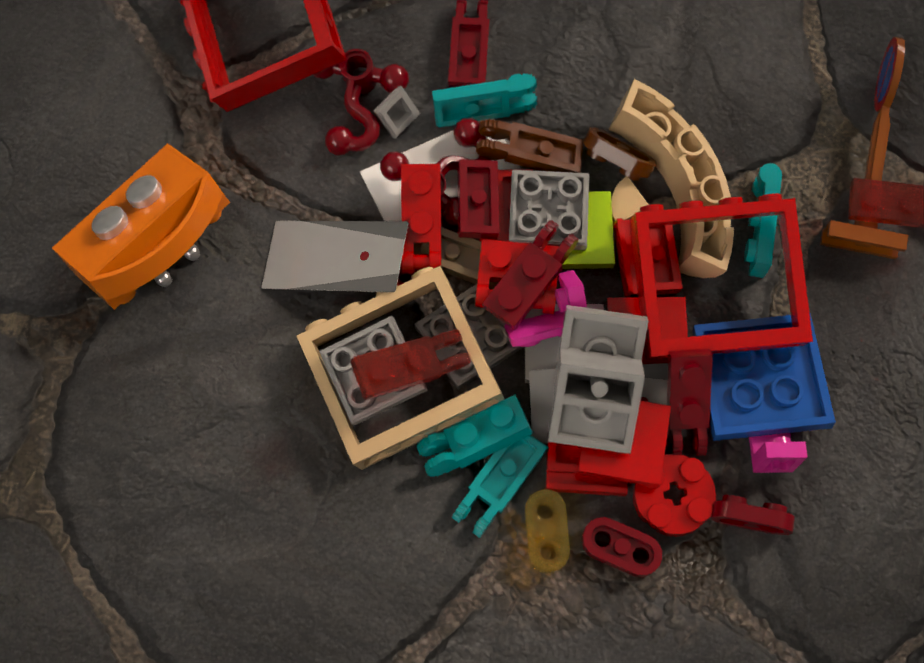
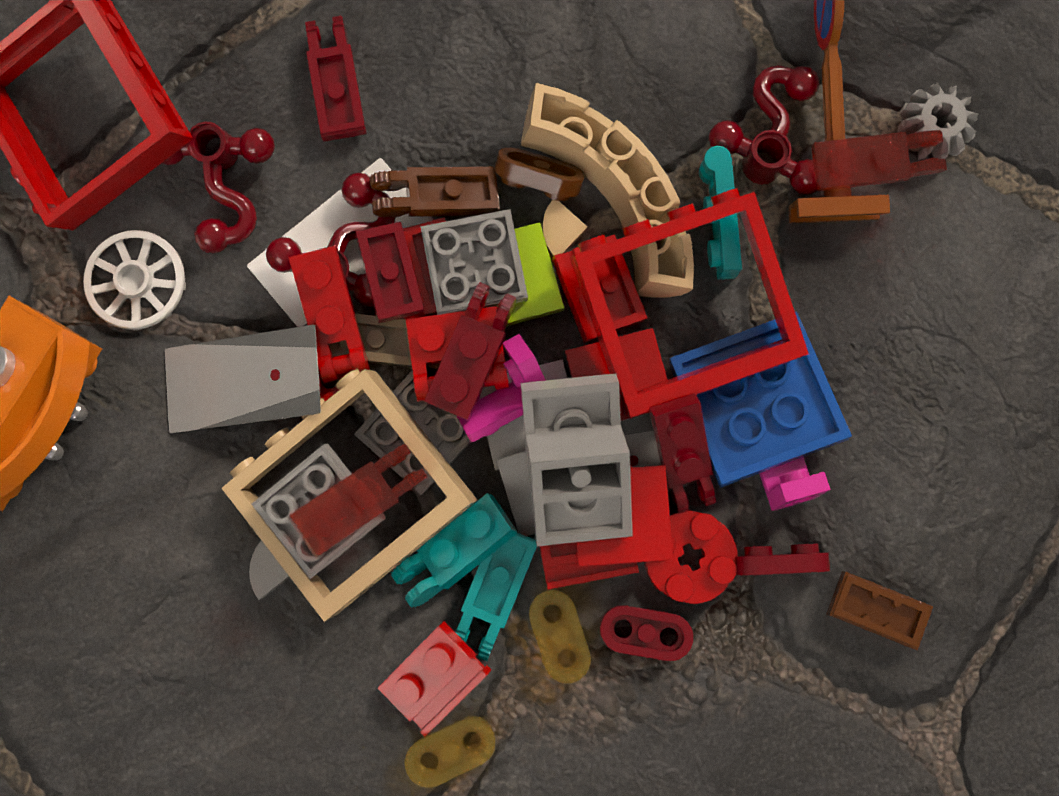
camera: 15 degrees left, 10 degrees up
(266, 162) = (134, 280): none -> white wheel
(314, 416) = (265, 572): none -> light grey tile
(397, 112) = (270, 184): light grey slope -> none
(429, 602) = (452, 753): none -> clear yellow plate
(431, 539) = (434, 678): none -> plate
(485, 100) = (369, 146): teal hinge -> none
(829, 579) = (879, 610): none -> reddish brown plate
(852, 135) = (801, 85): none -> dark red piece

